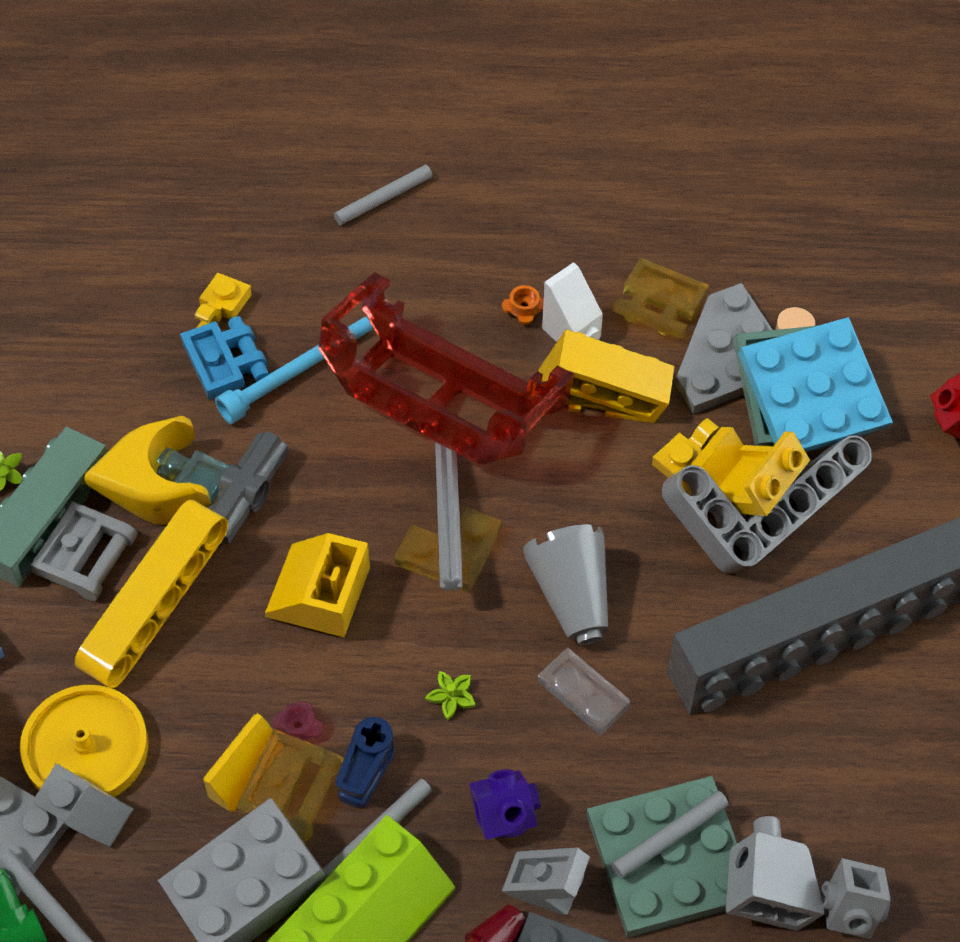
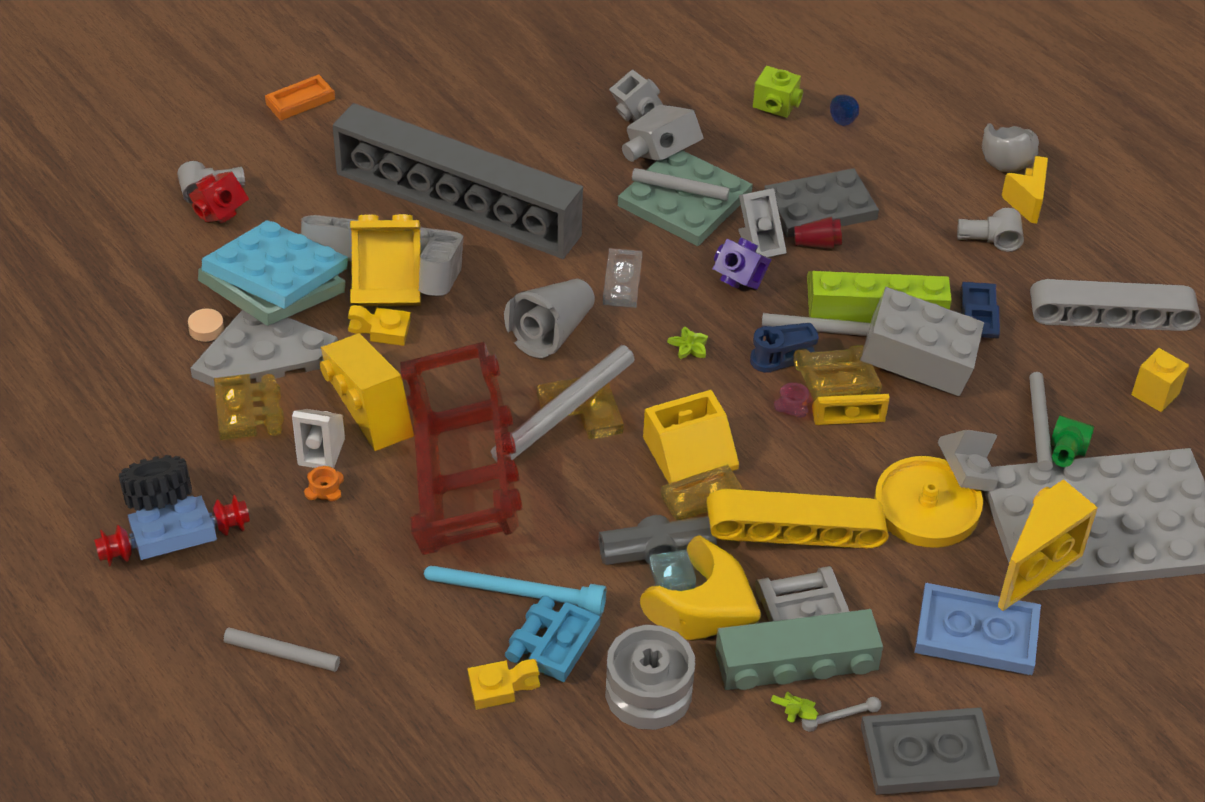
camera: 130 degrees left, 10 degrees down
(118, 380) = (649, 677): none -> light grey wheel
(252, 570) = (689, 495): none -> clear yellow plate
(557, 180) = (171, 528): none -> medium blue plate
(600, 195) = (155, 482): none -> black tyre

